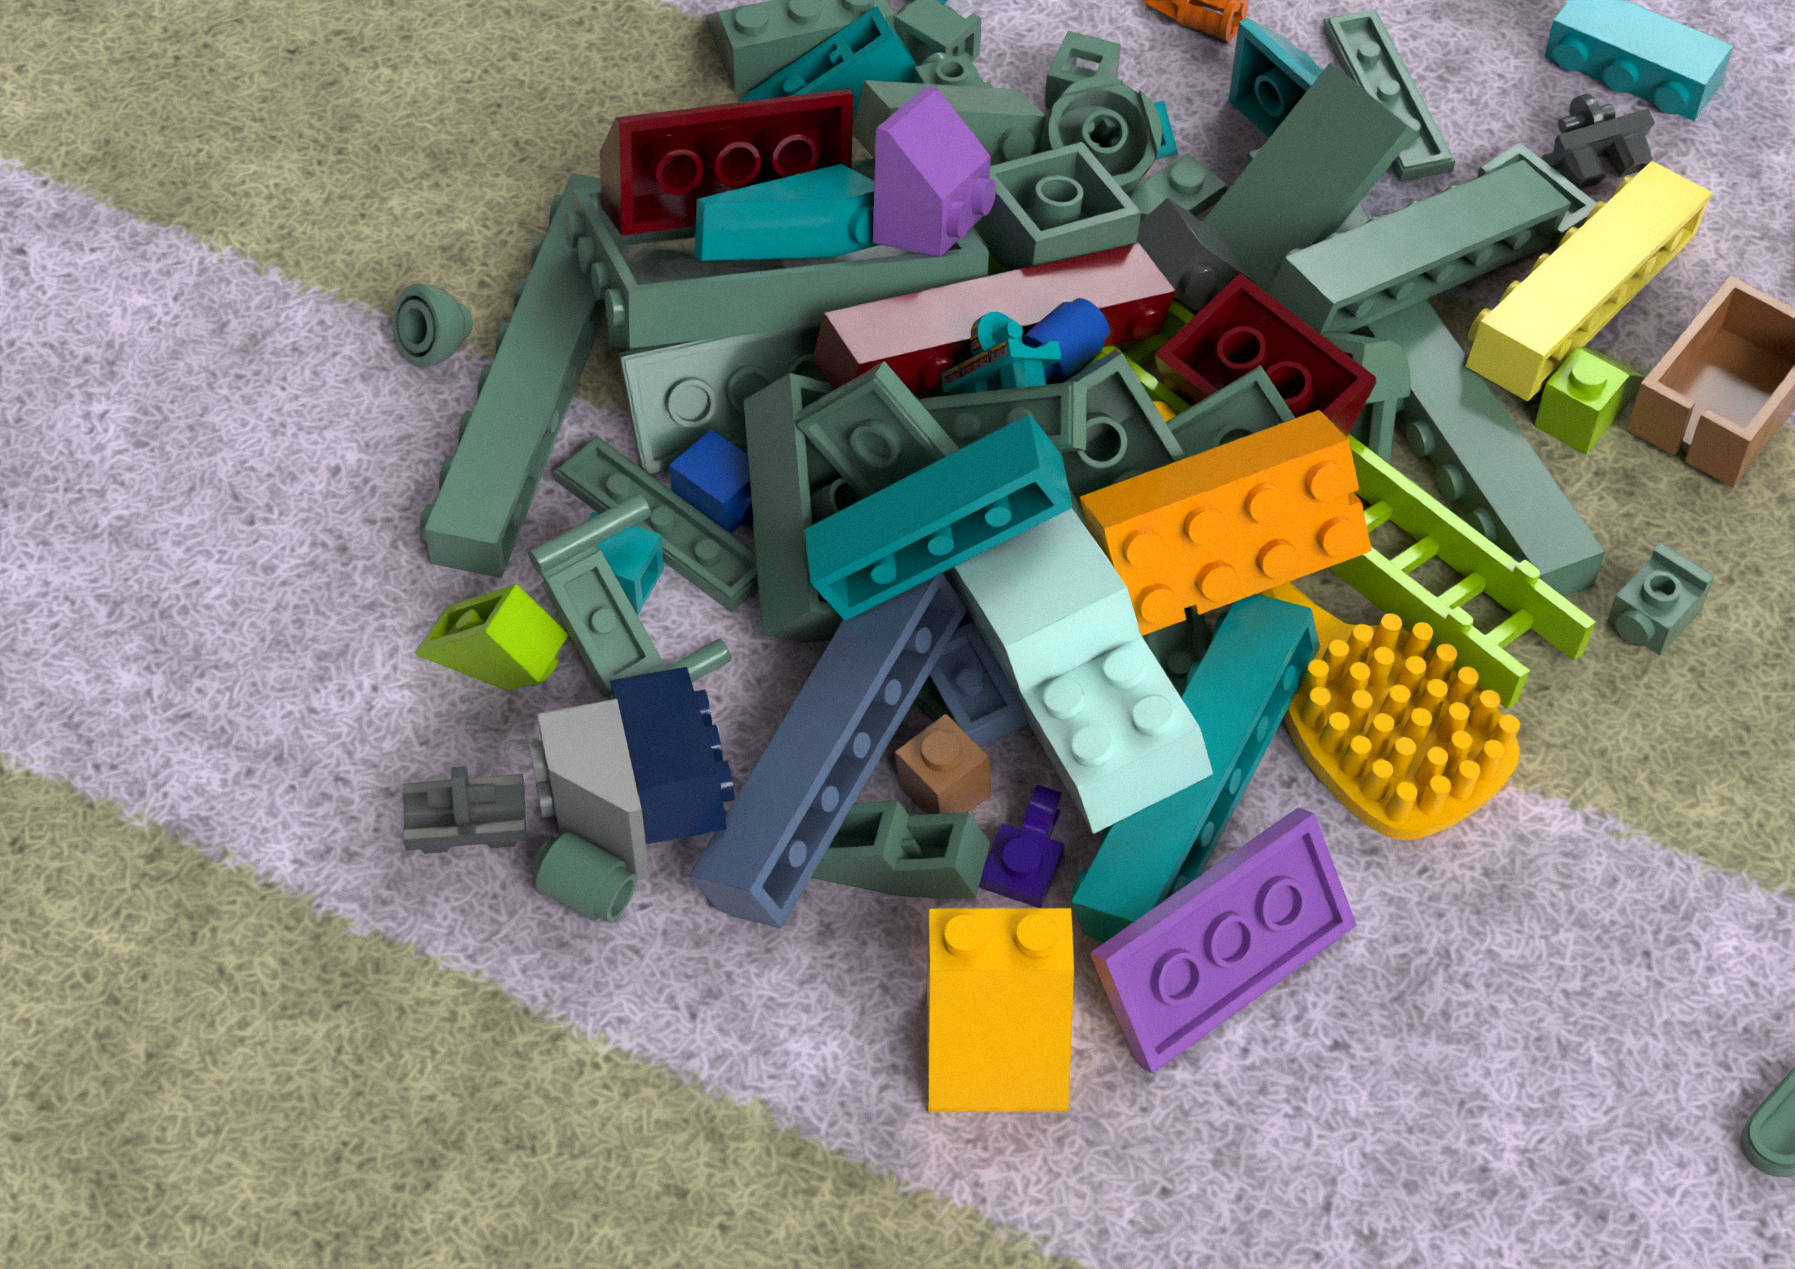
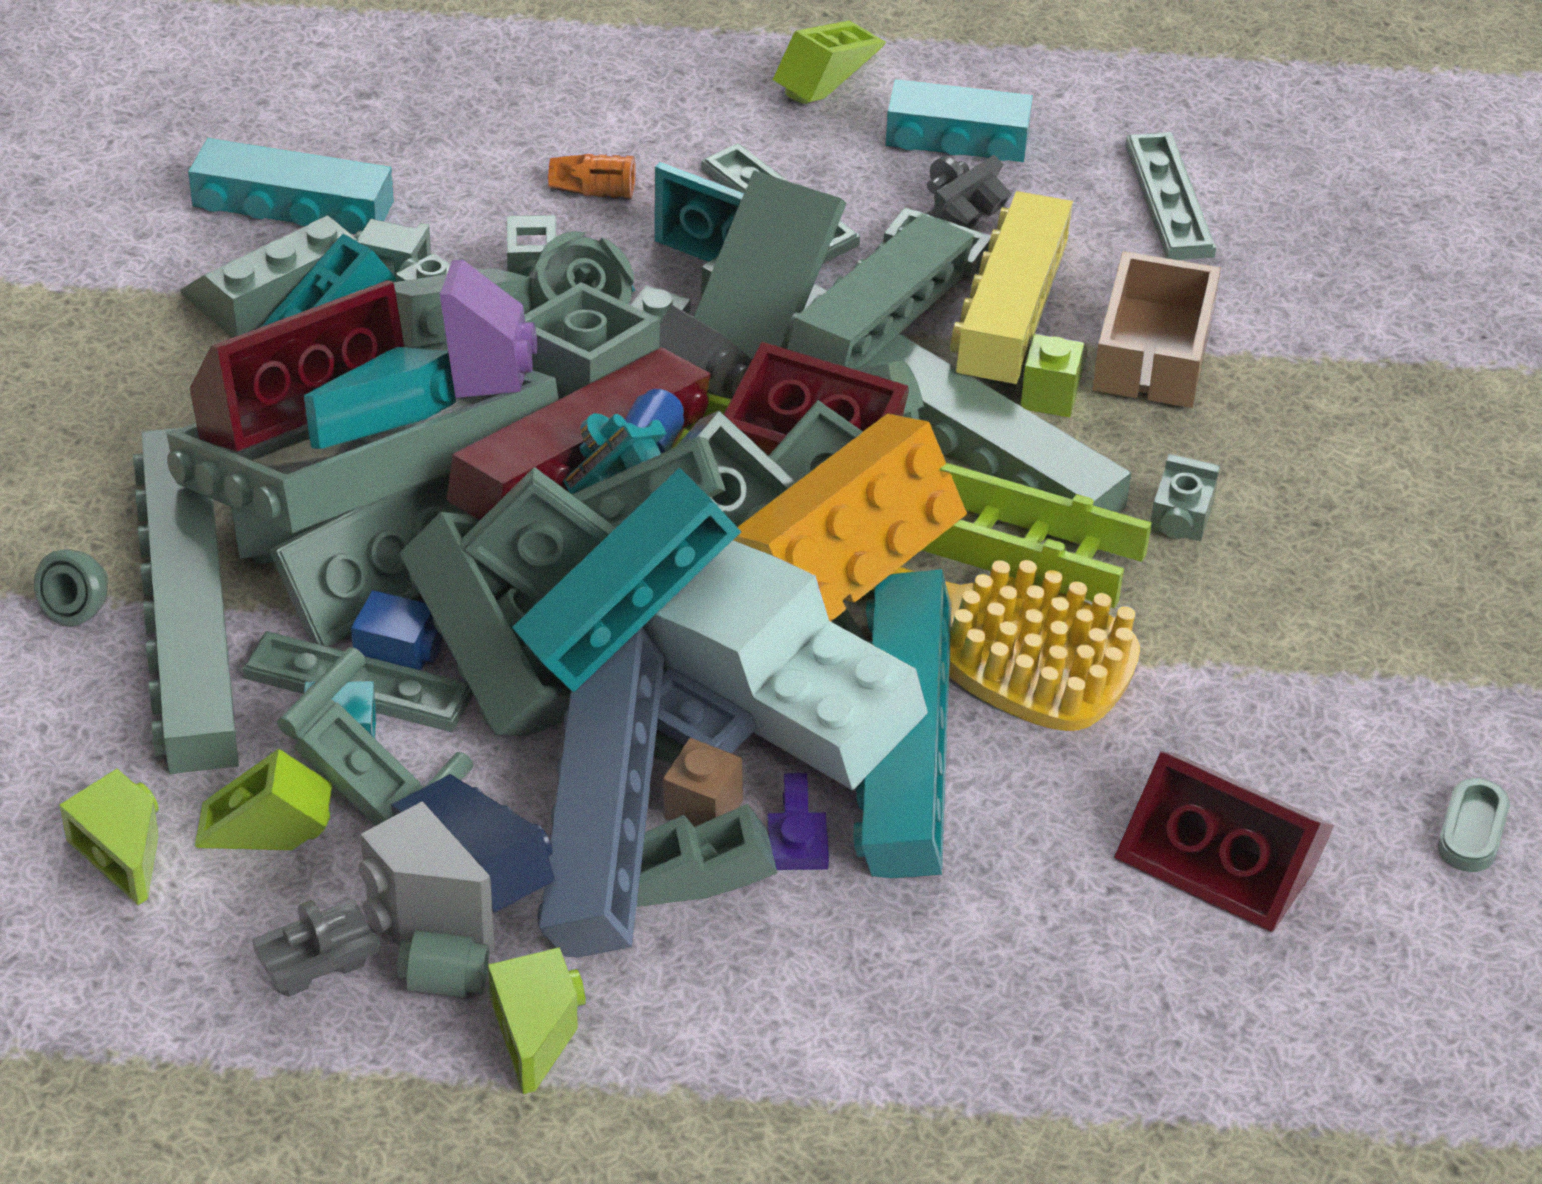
camera: 25 degrees left, 10 degrees down
(342, 613) = (115, 831): none -> lime slope
(646, 967) = (535, 1011): none -> lime slope
(999, 1009) = (848, 937): yellow slope -> none
(1223, 939) = (993, 834): medium lavender plate -> none
(1488, 1034) = (1222, 840): none -> dark red slope

